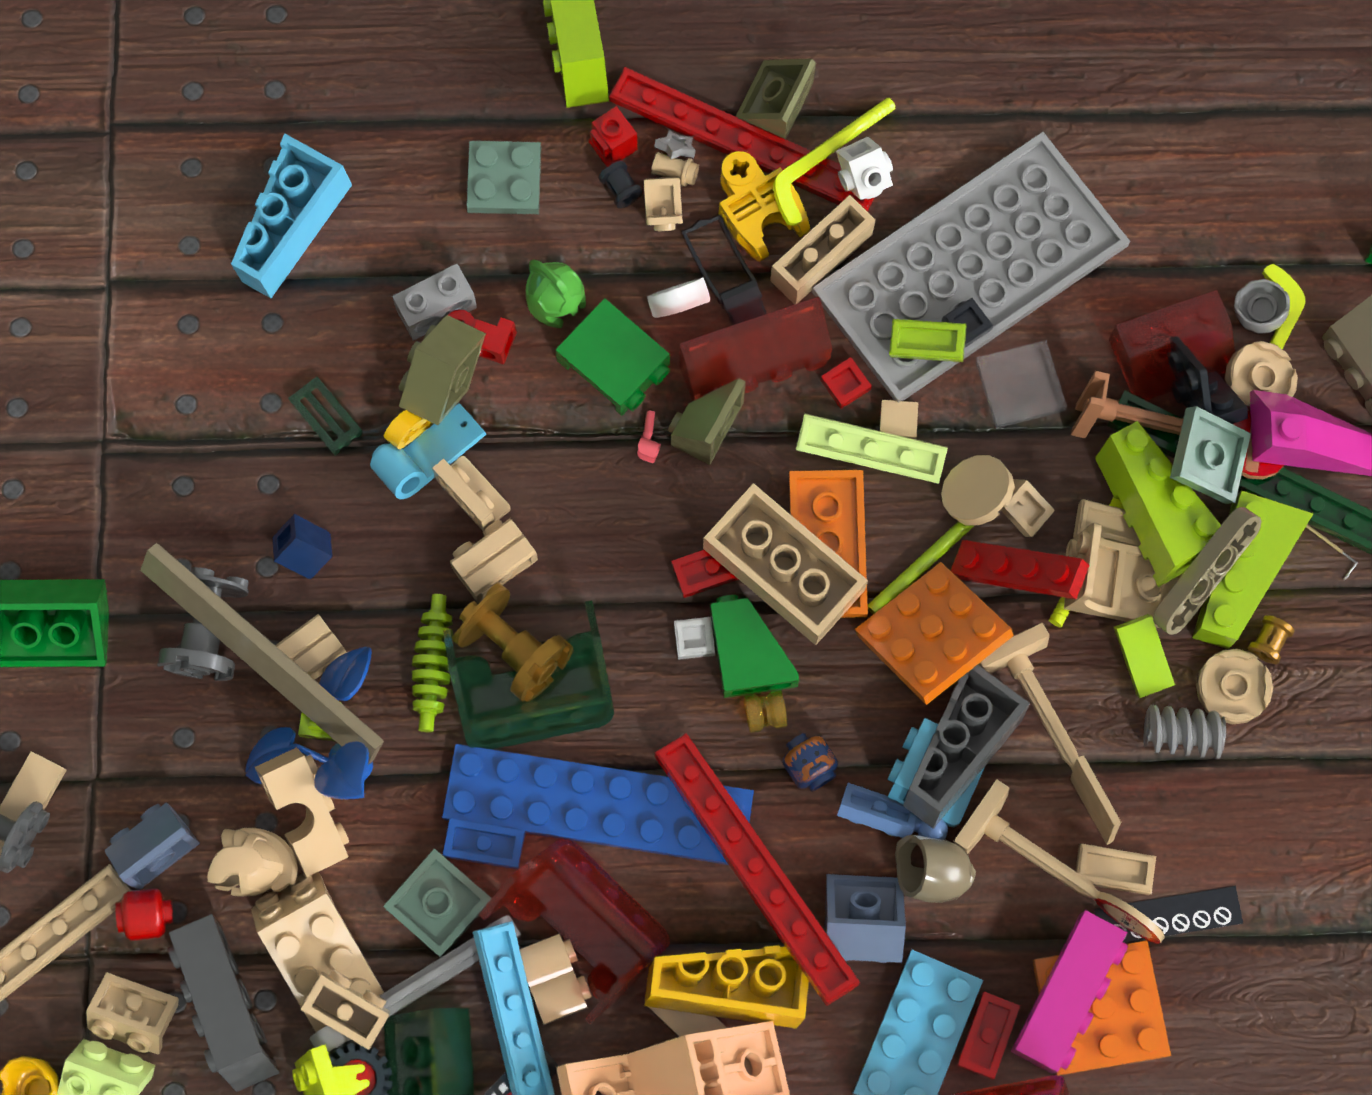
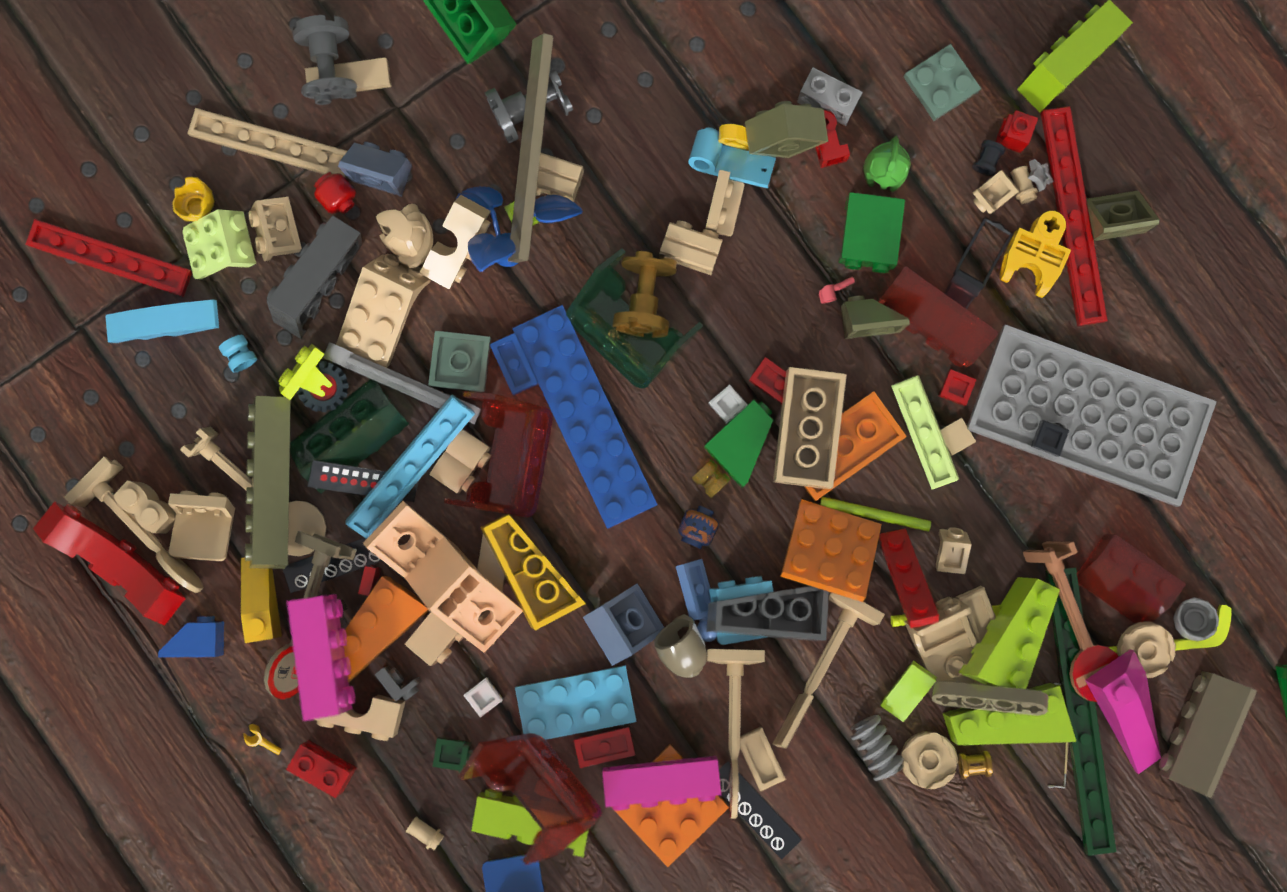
camera: 60 degrees right, 10 degrees up
(302, 546) = (619, 127): dark blue panel -> none
(344, 439) = (704, 105): clear green tile -> none
(345, 1009) = (354, 351): tan brick -> none
(431, 663) = (573, 273): lime piece -> none
(679, 298) = (938, 245): white hat -> none
(757, 870) = (607, 539): red tile -> none
(783, 181) = (1070, 259): neon yellow piece -> none
(822, 250) = (1034, 314): tan brick -> none
(864, 168) = (1108, 304): white brick -> none
(927, 340) = (1020, 420): lime tile -> none
(977, 490) = (943, 517): tan tile -> none
(1021, 384) = (1034, 498): clear tile -> none
(1202, 389) = (1109, 621): black bracket -> none
(1210, 455) = (1068, 651): sand green plate -> none

